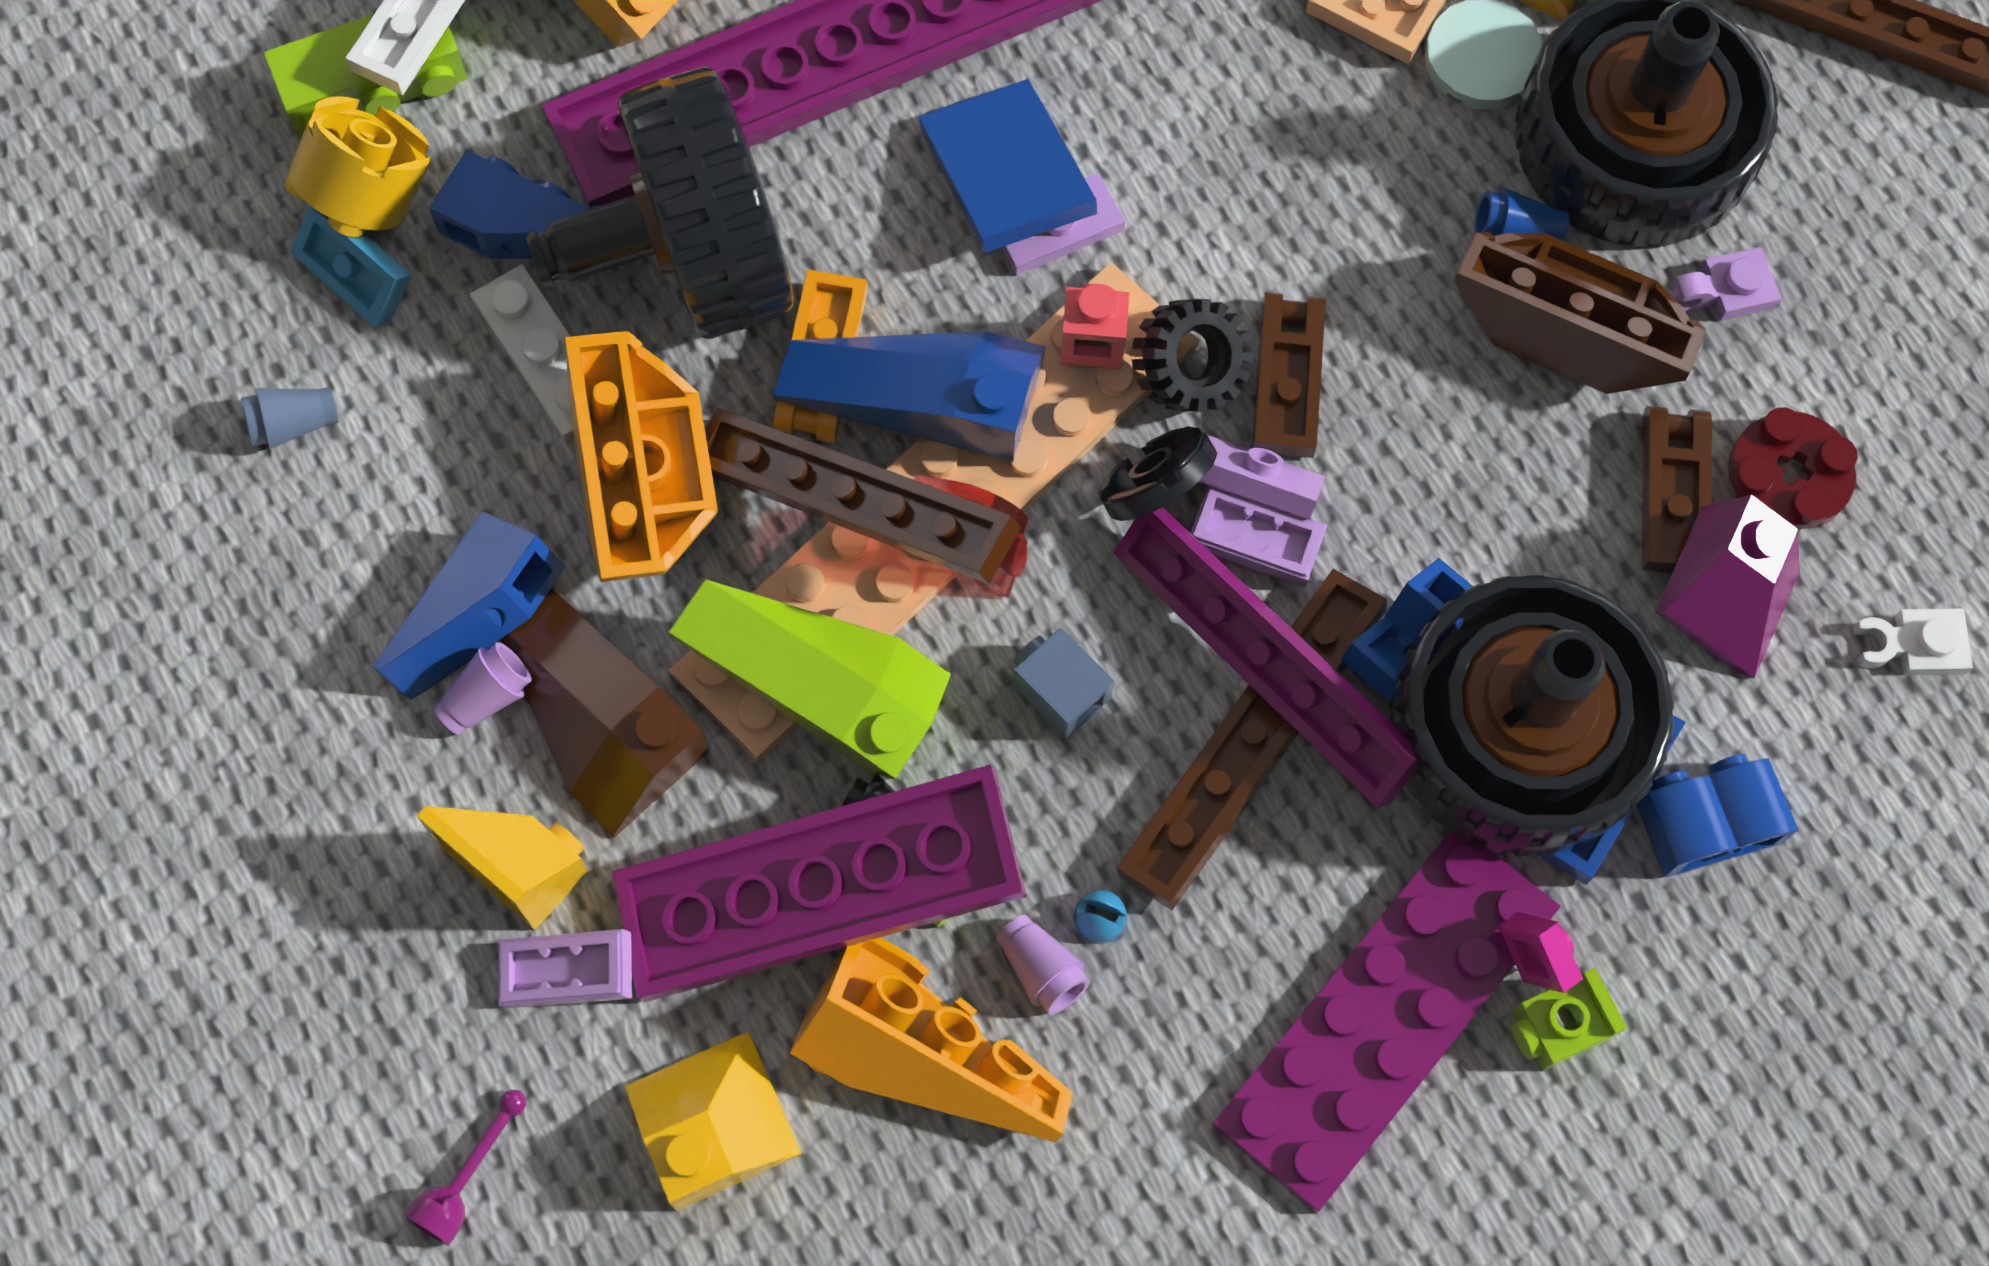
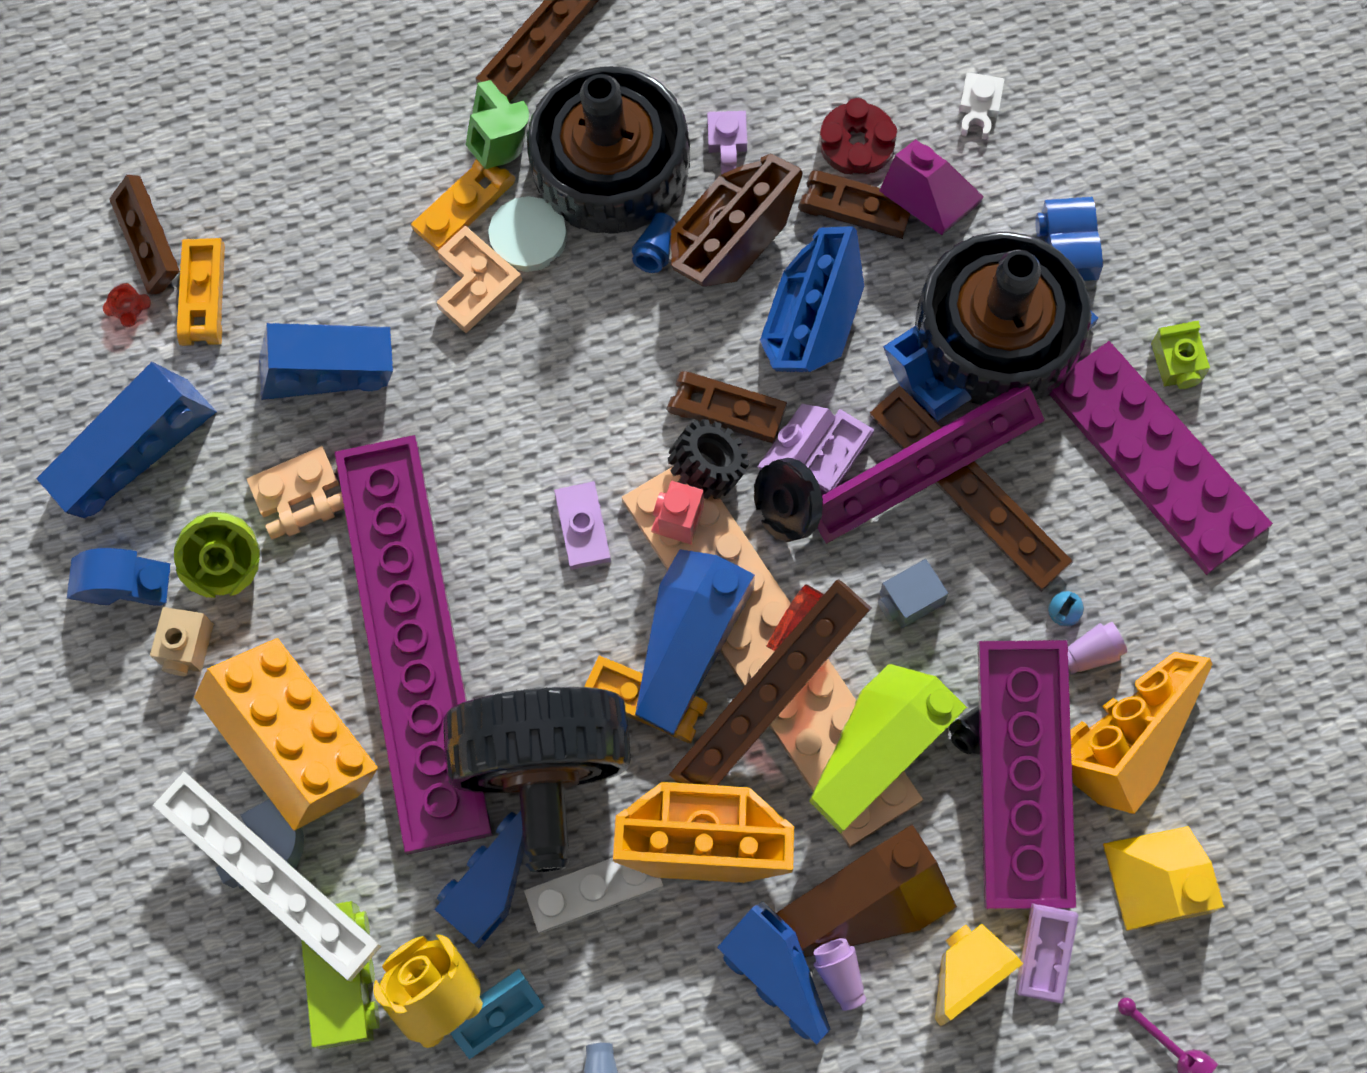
camera: 70 degrees left, 0 degrees up
(1007, 165) = (536, 545): blue tile -> none
(1482, 458) = (815, 302): none -> blue wedge
(1541, 951) = (1144, 355): dark pink plate -> none

